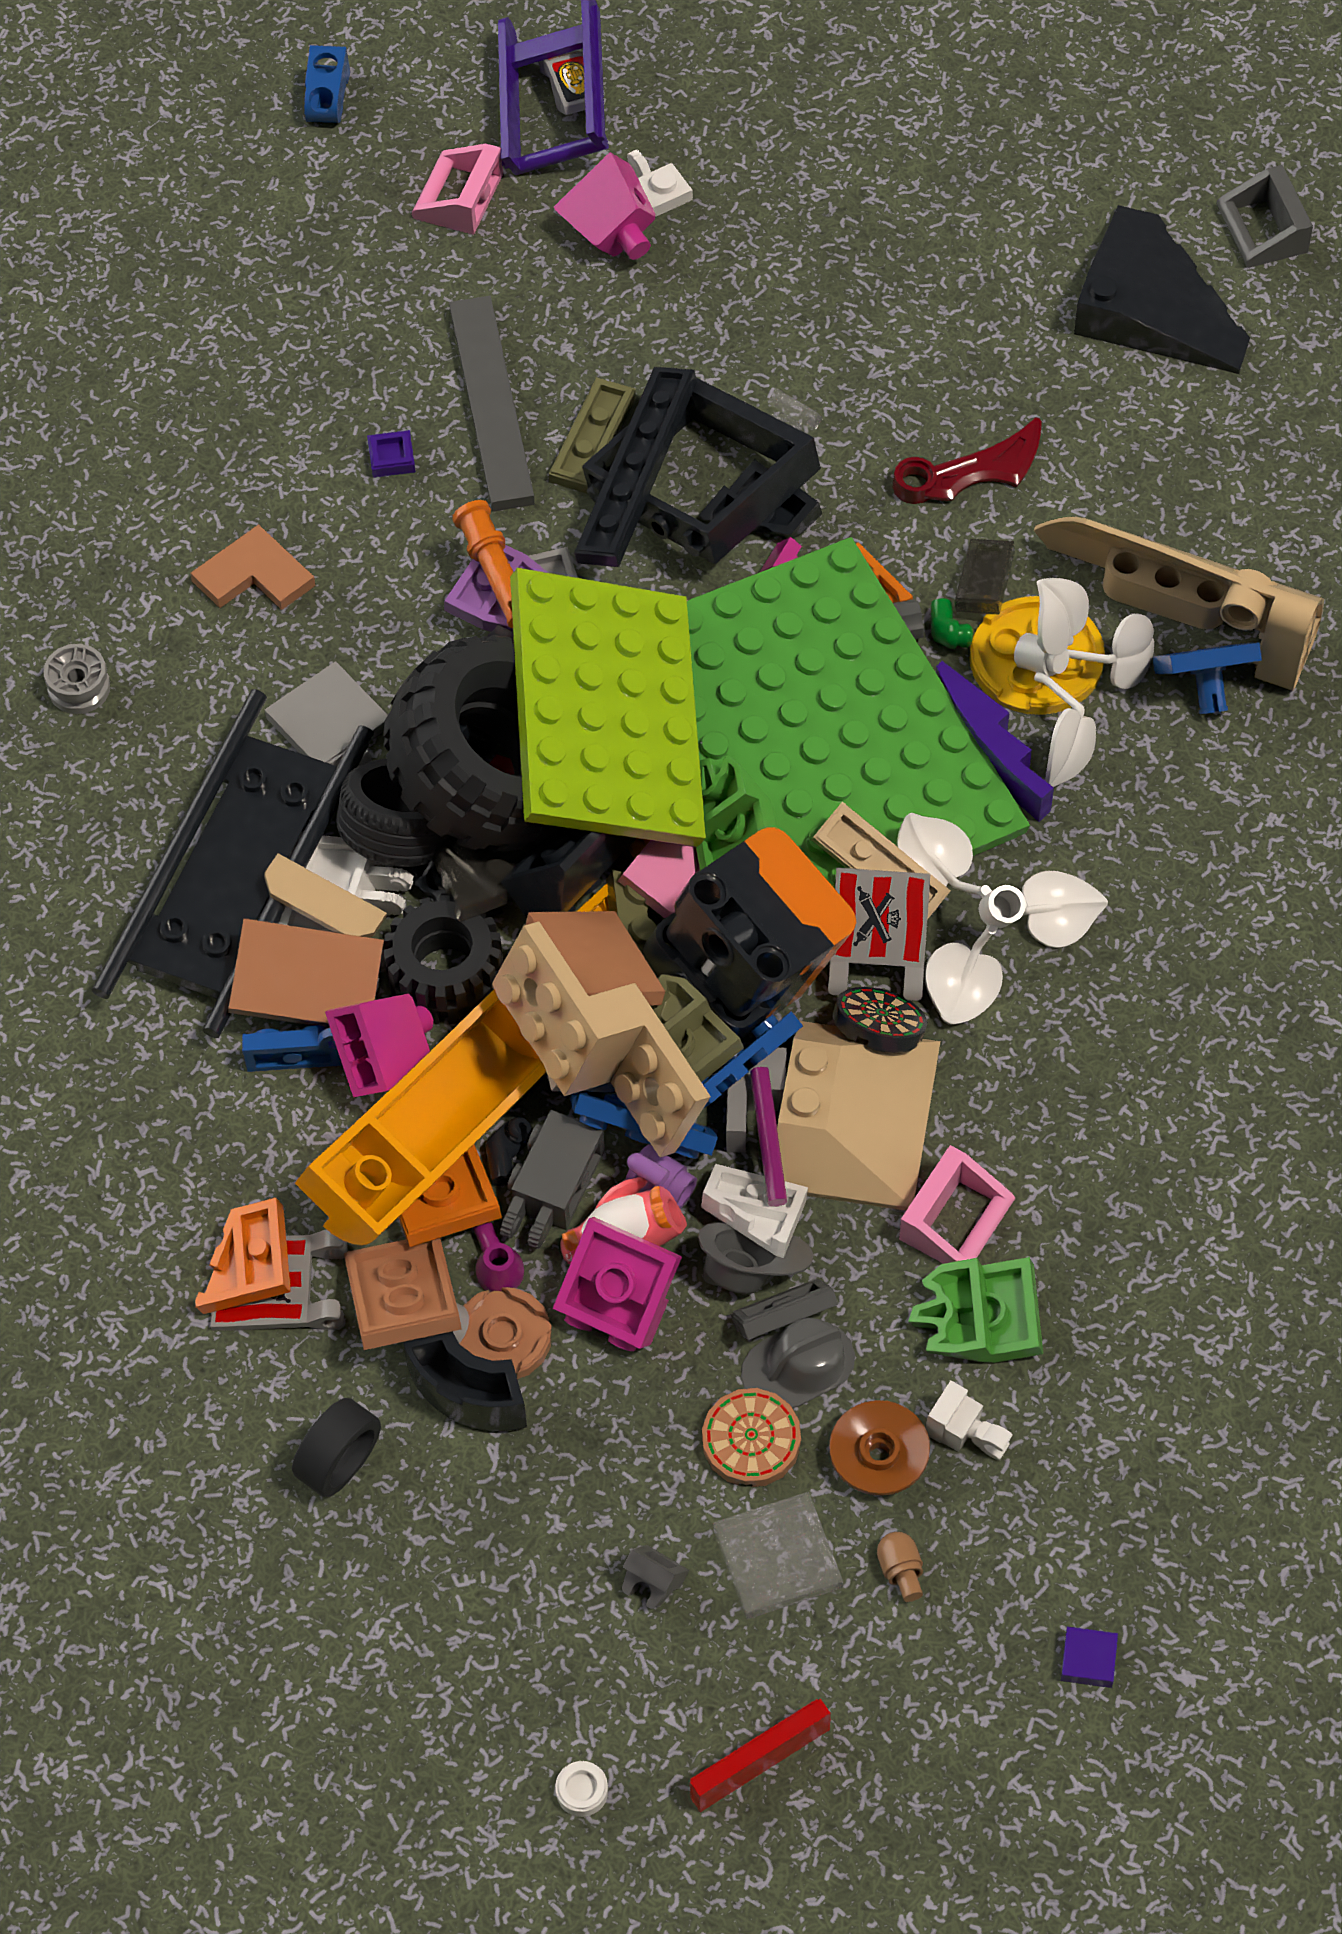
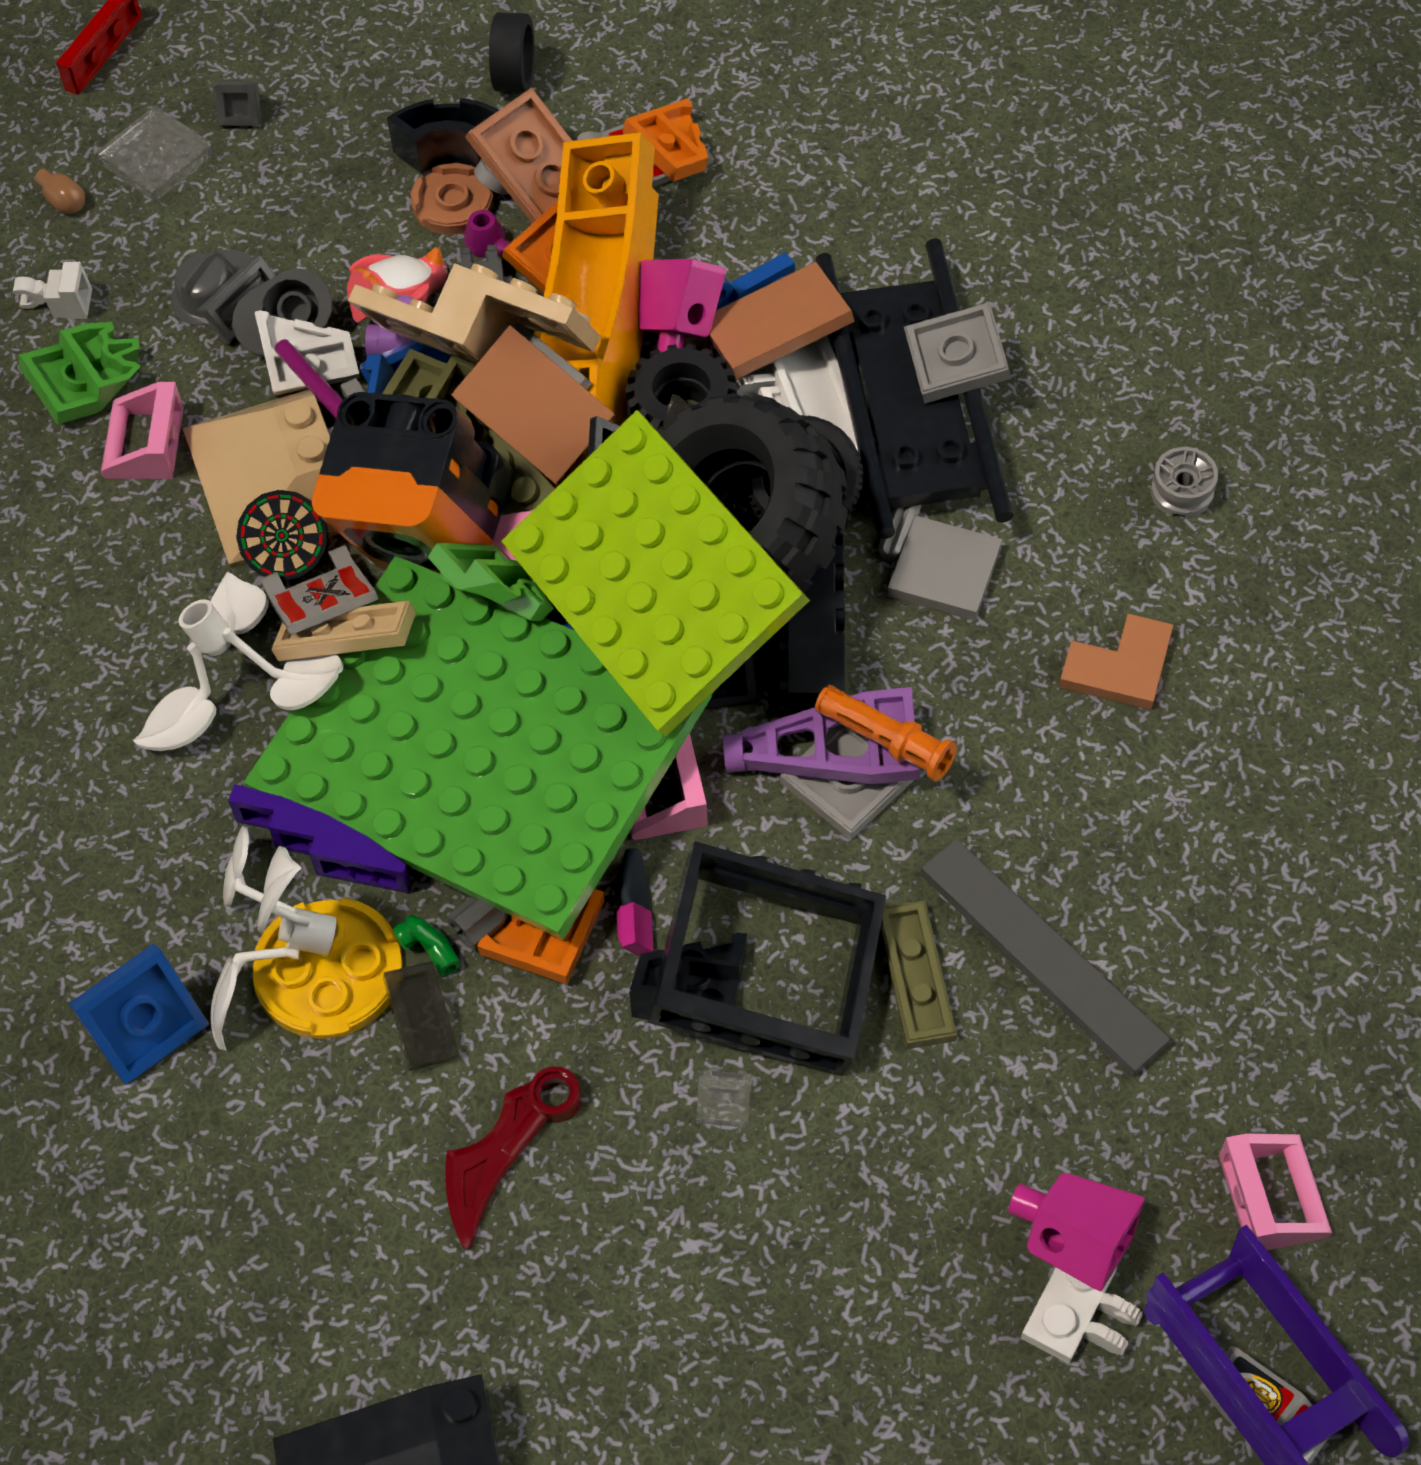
camera: 150 degrees right, 0 degrees up
(177, 851) = (957, 352): none -> light grey tile
(321, 899) = (814, 380): tan piece -> none
(391, 453) = (1095, 847): dark purple tile -> none
(617, 1285) = (372, 233): dark pink plate -> none
(635, 467) = (824, 905): black tile -> none
(751, 1437) = (219, 218): nougat tile -> none
(884, 1427) = (114, 245): dark orange dish -> none
(1241, 598) = (122, 1074): tan panel -> none

